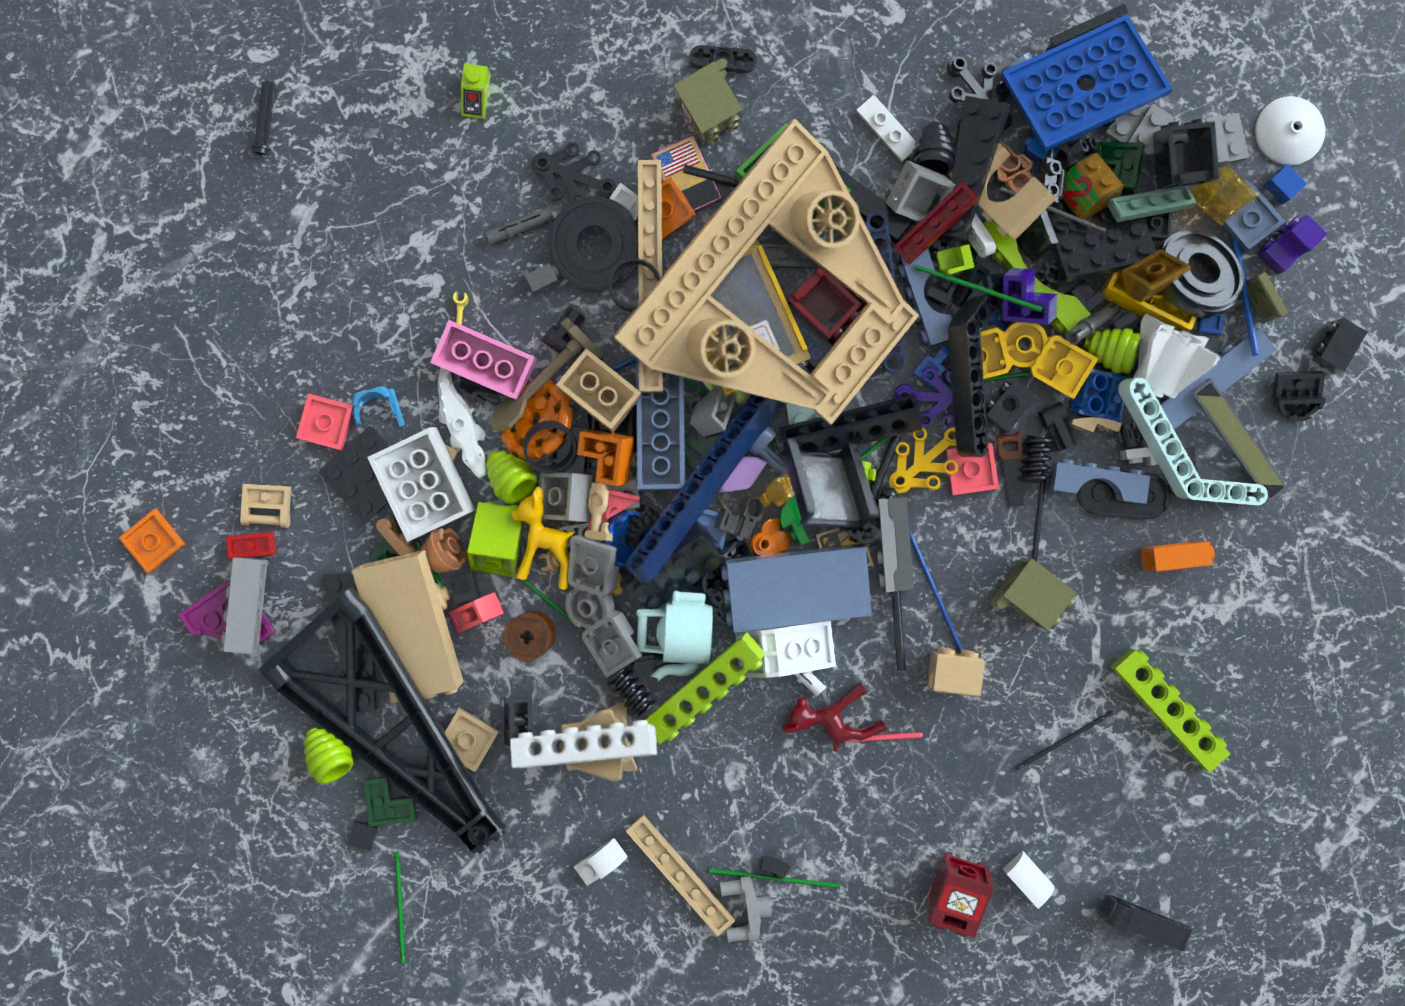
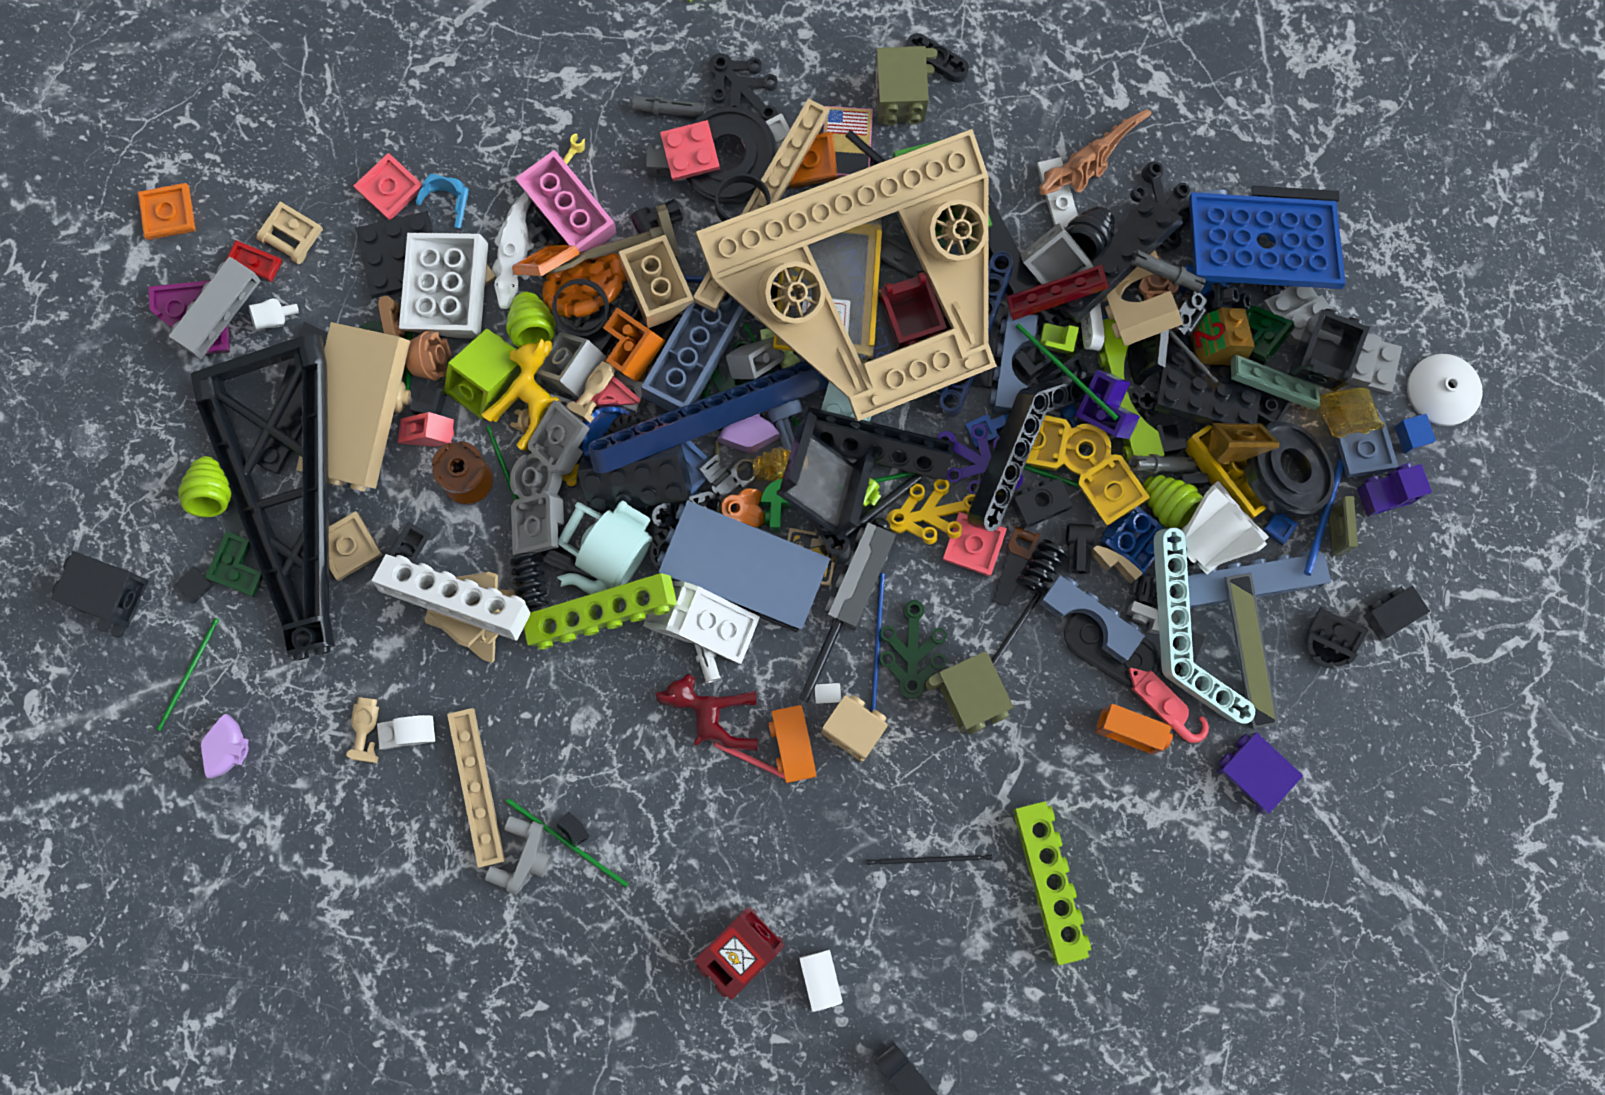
camera: 25 degrees right, 10 degrees down
(292, 583) = (270, 314): none -> white piece
(293, 884) = (100, 591): none -> black container
(464, 950) = (223, 747): none -> lavender piece
(495, 420) = (545, 260): none -> orange tile
(561, 871) = (363, 721): none -> tan piece
(562, 259) = (690, 150): none -> coral plate
(900, 84) = (1089, 160): none -> nougat animal
(912, 708) = (793, 743): none -> orange brick
(916, 651) = (827, 693): none -> white sticker
(968, 584) = (912, 654): none -> dark green plant
(1029, 156) = (1177, 275): none -> dark grey pin
(1190, 519) = (1165, 704): none -> coral plate
(1291, 535) = (1259, 772): none -> dark purple panel

